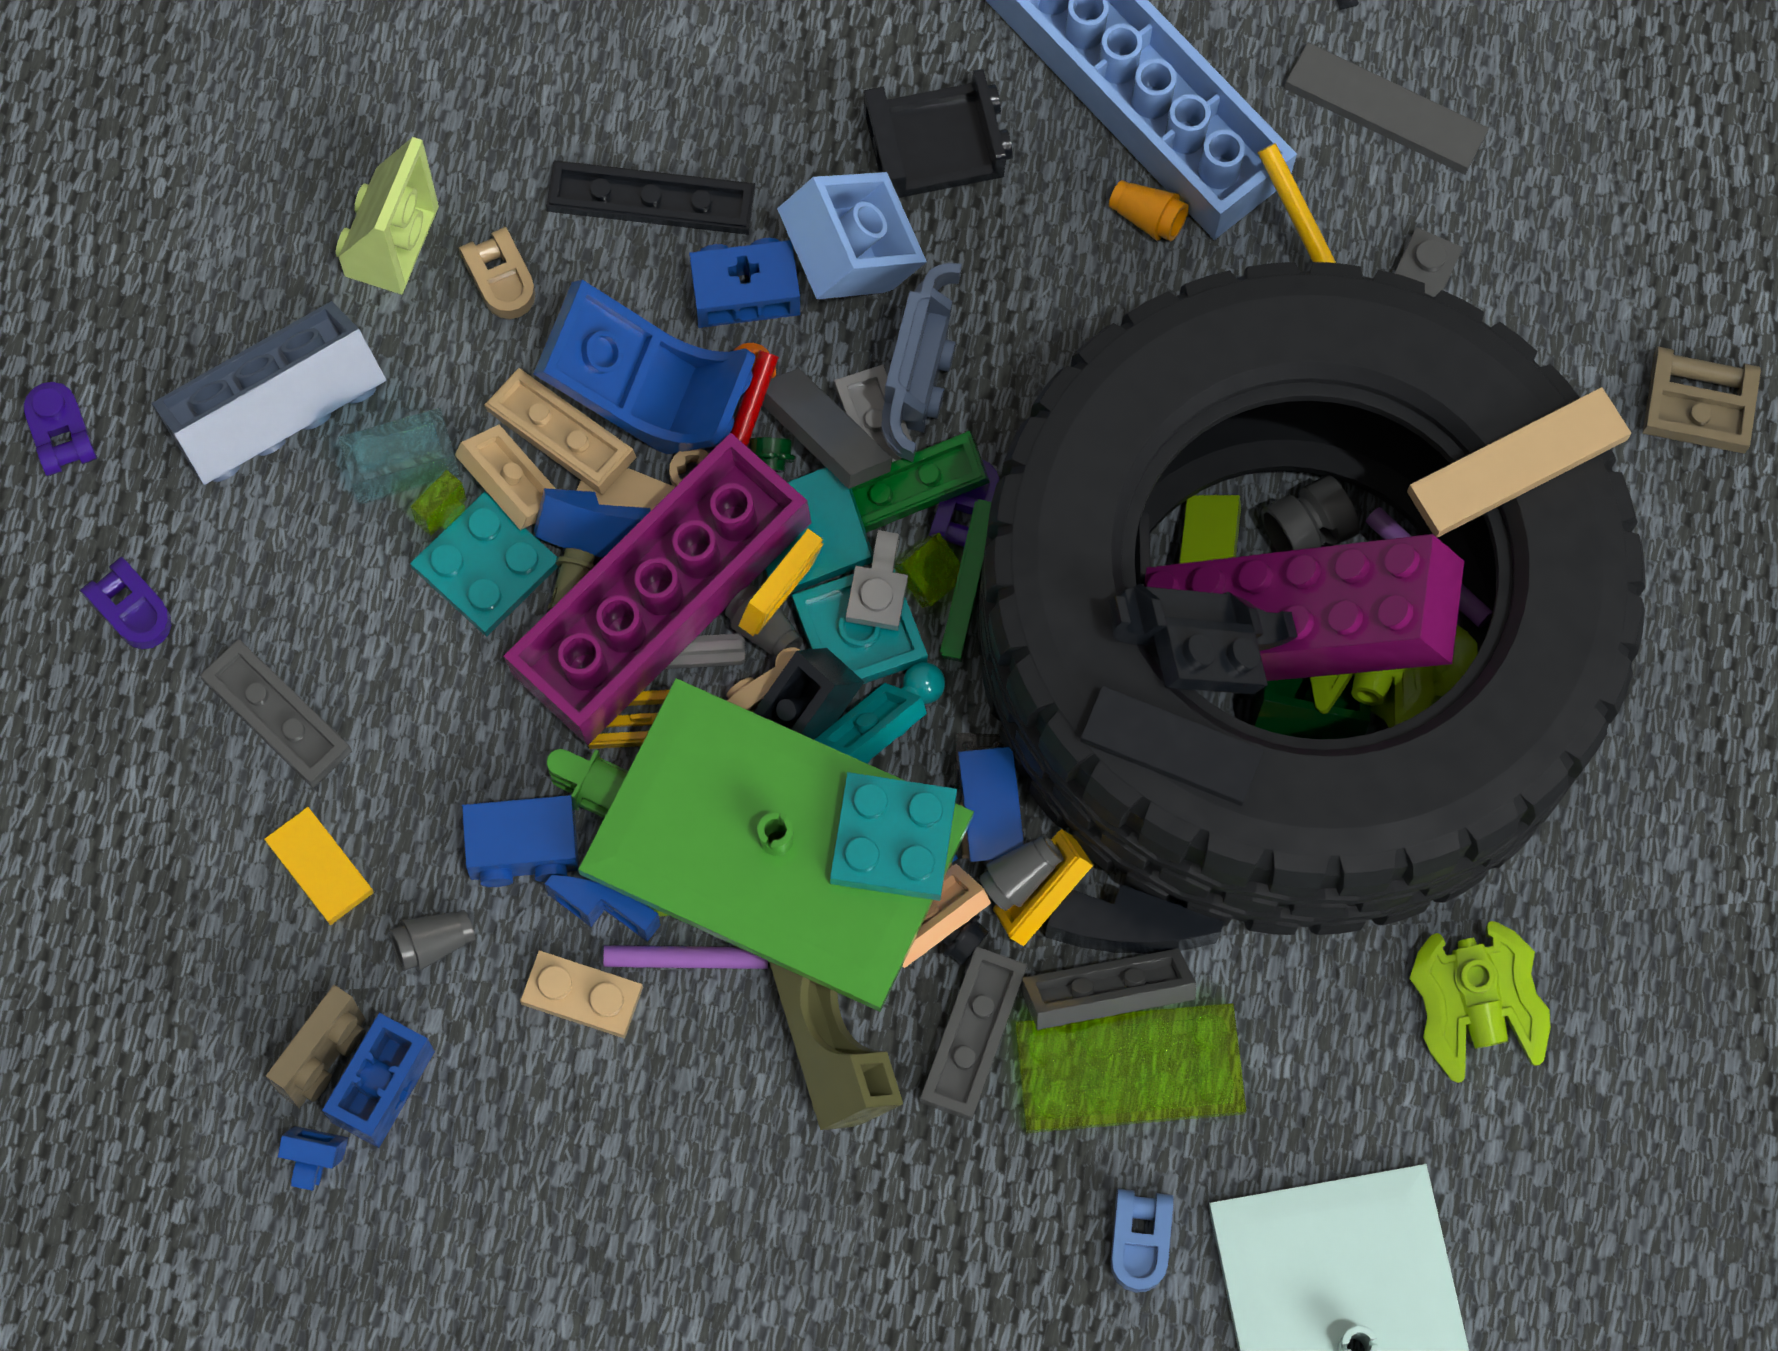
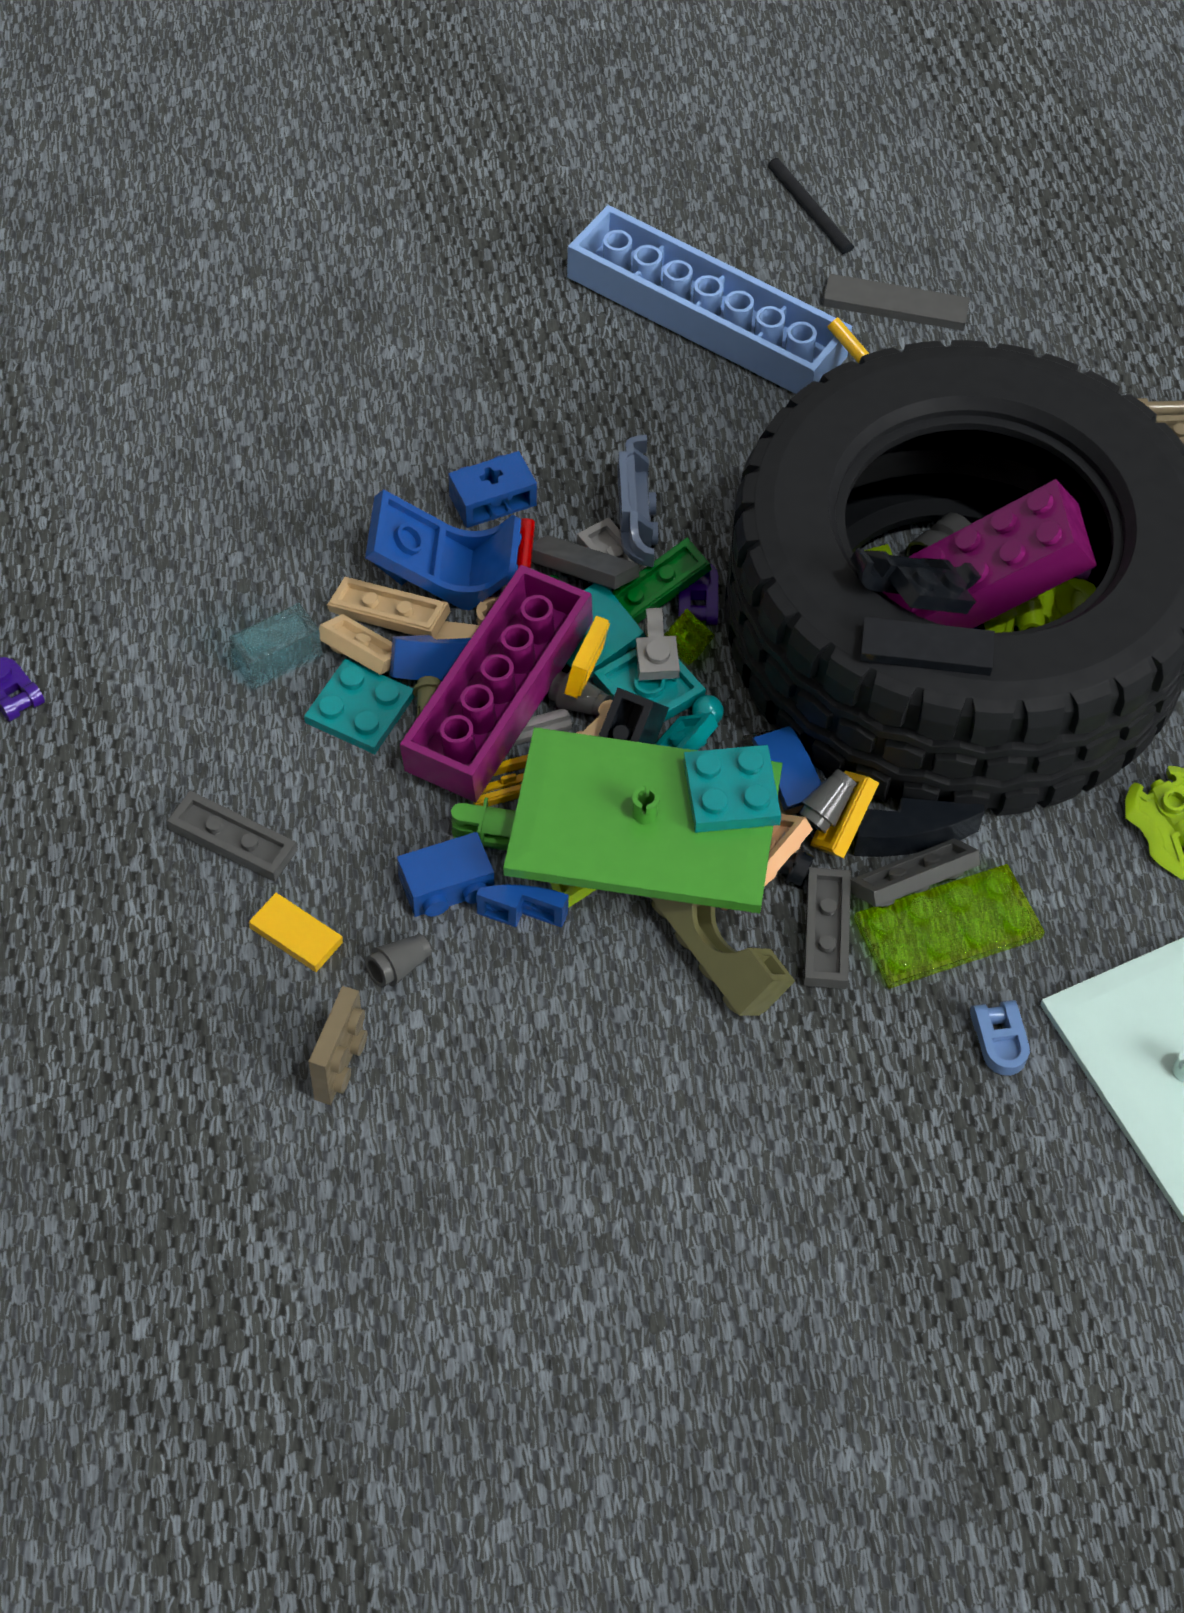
camera: 15 degrees left, 15 degrees down
(138, 618) = (107, 797): dark purple plate -> none
(270, 393) = (166, 629): slope -> none
(312, 1153) = (352, 1127): blue tile -> none
(378, 1080) = (391, 1060): blue brick -> none
(390, 220) = (224, 495): yellowish green slope -> none
(439, 504) = (314, 671): clear neon green plate -> none
(507, 287) = (319, 529): tan plate -> none
(581, 994) = (524, 972): tan plate -> none
(651, 197) = (405, 455): black tile -> none
(681, 957) = (594, 929): medium lavender bar -> none
(851, 235) = (560, 437): light blue brick -> none
(938, 136) = (597, 377): black panel -> none
(966, 584) = (719, 632): green tile -> none
(1150, 209) = (759, 389): light orange cone -> none
(1518, 462) = (1095, 426): tan tile -> none

